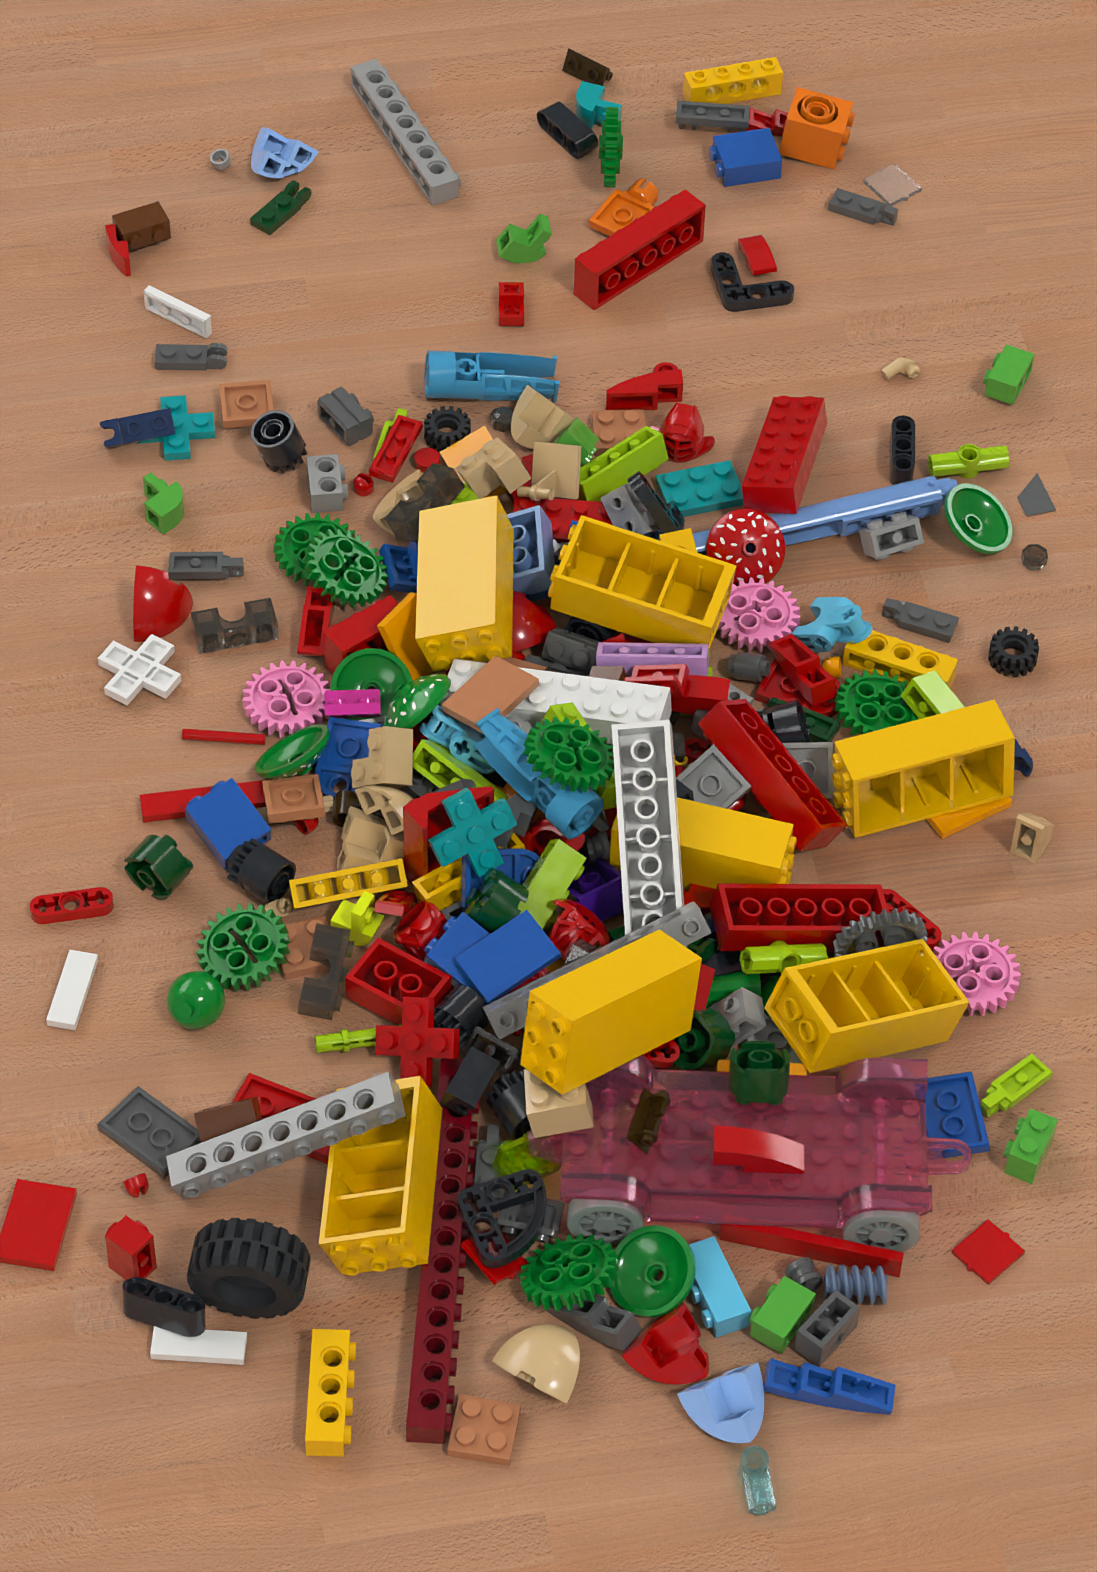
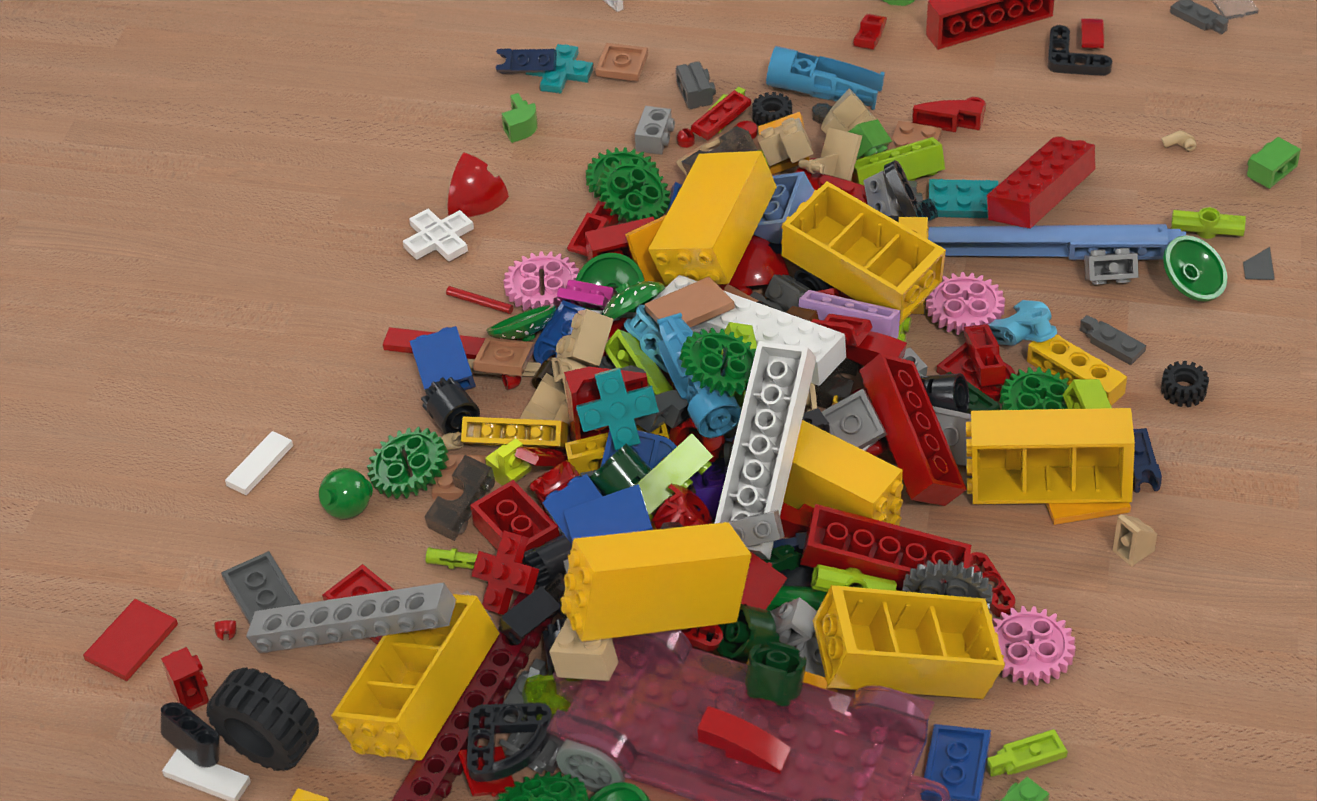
camera: 25 degrees right, 5 degrees down
(79, 896) = (310, 399): red beam -> none
(157, 866) = (369, 382): dark green brick -> none
(190, 357) = (596, 21): dark grey hinge -> none
(204, 565) = (528, 170): dark grey hinge -> none
(216, 634) = (545, 222): clear smoke arch -> none
(227, 1118) = (314, 591): reddish brown brick -> none
(278, 440) = (628, 89): black gear -> none
(647, 1119) = (657, 686): dark brown hinge -> none
(684, 425) = (965, 142): red piece -> none
(743, 526) = (994, 242): red dish -> none
(748, 666) = (939, 342): dark grey brick -> none
(833, 666) = (1015, 359): light orange hinge -> none
(902, 450) = (1152, 200): black beam -> none
(1034, 557) = (1237, 311): clear smoke tile -> none

